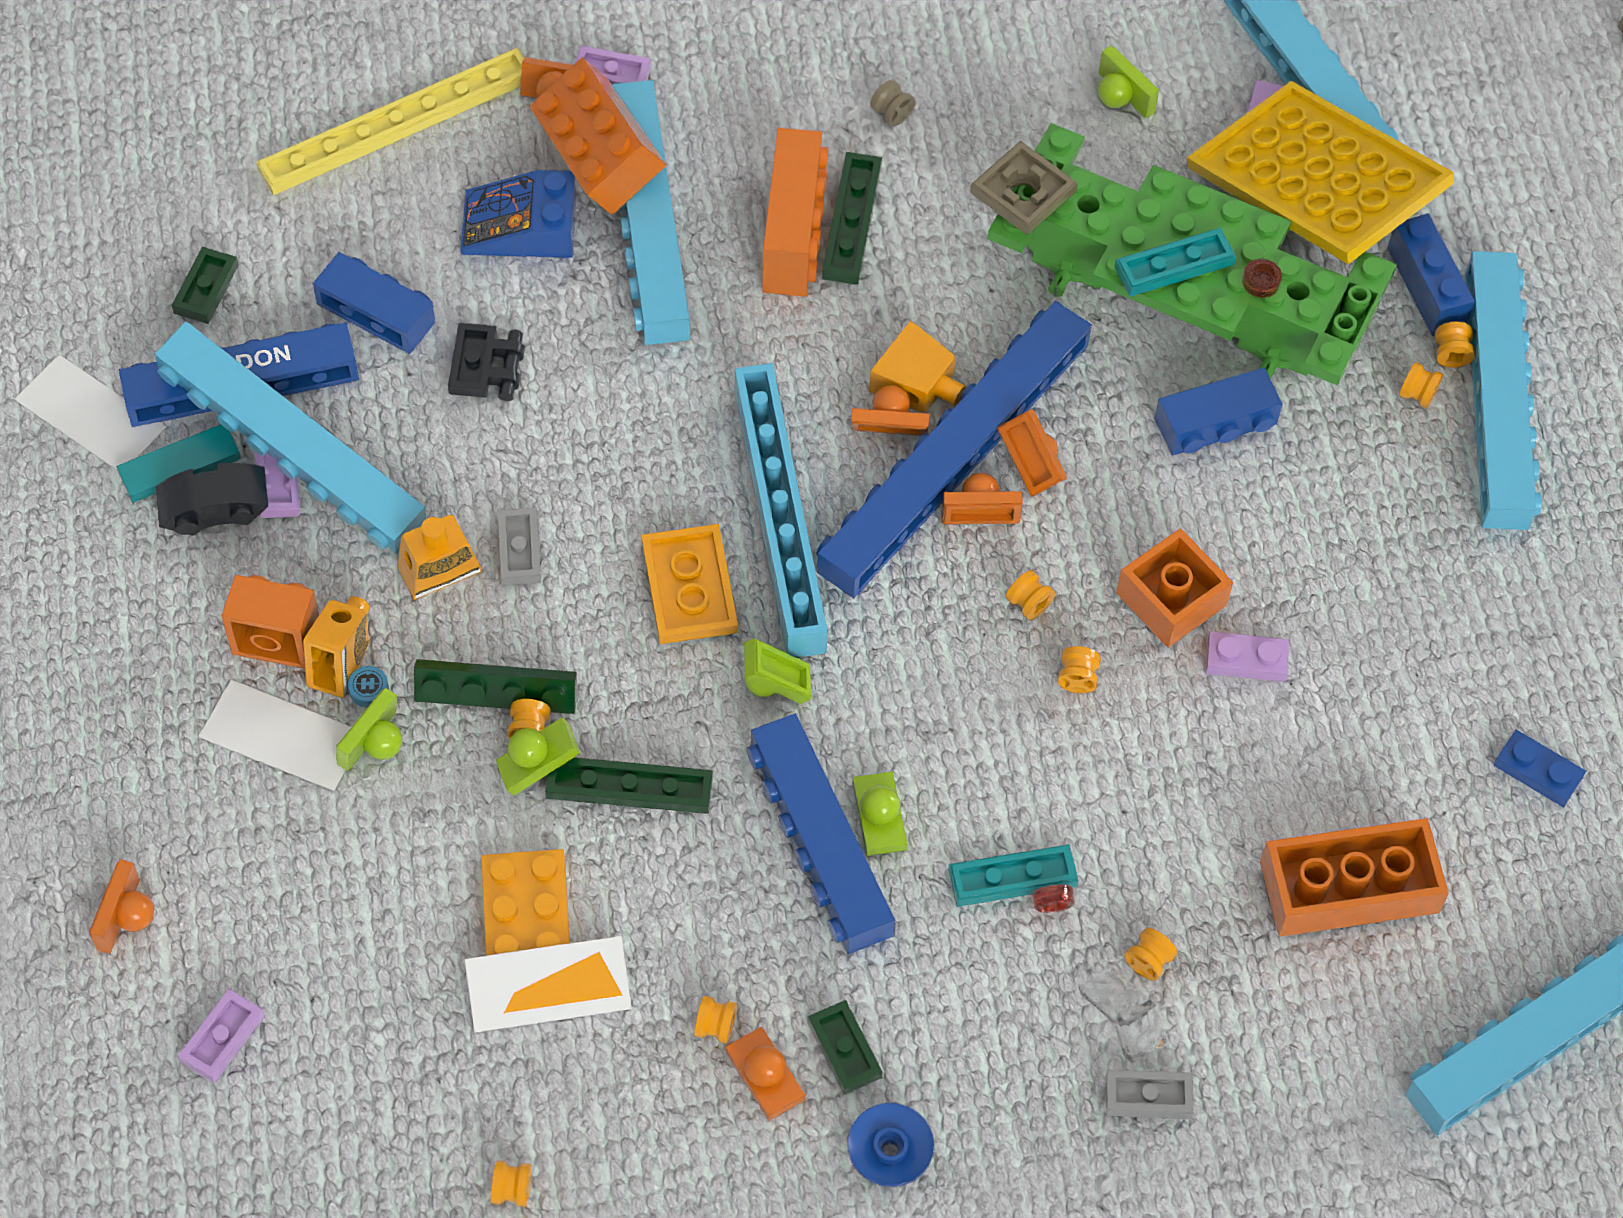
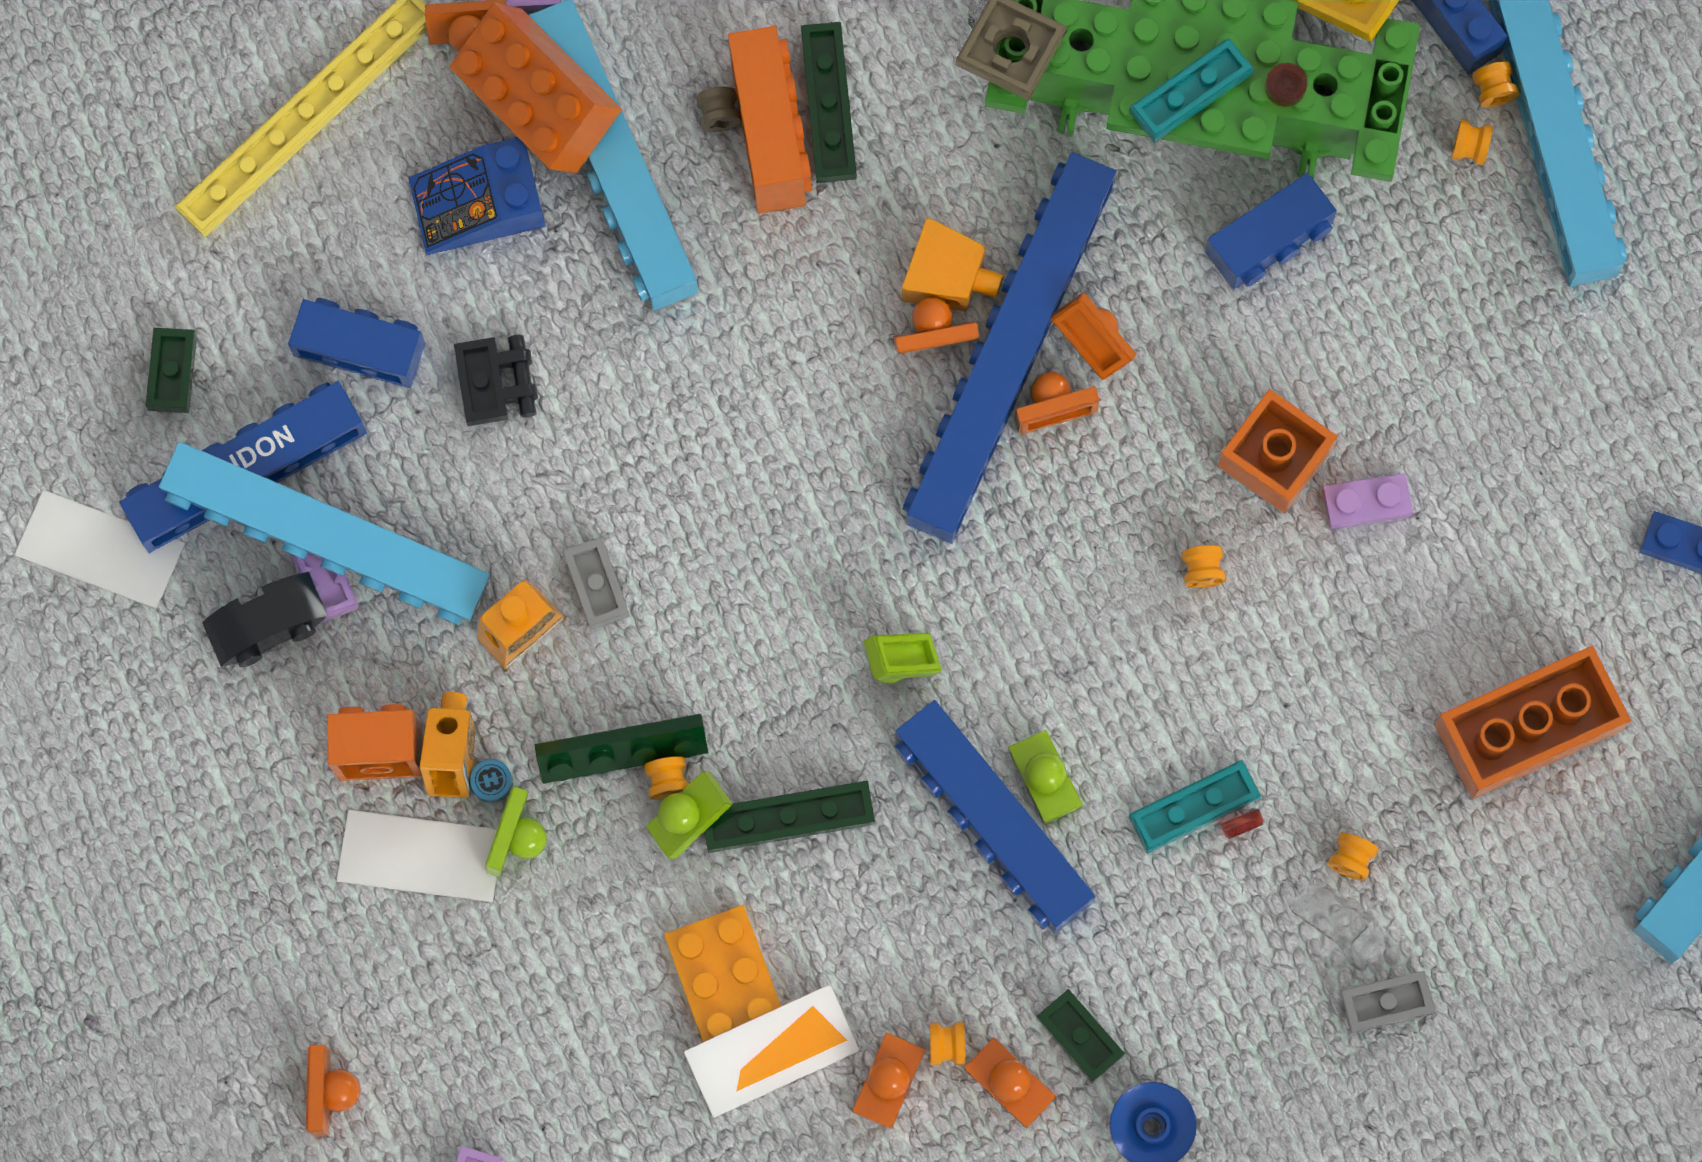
camera: 10 degrees left, 15 degrees up
(198, 452) = (212, 583): teal tile -> none
(650, 1041) = (888, 1081): none -> orange tile
(689, 584) = (782, 578): light orange plate -> none
(752, 199) = (718, 109): none -> dark tan wheel
(780, 511) = (853, 472): medium azure brick -> none
(1030, 595) = (1132, 496): light orange wheel -> none

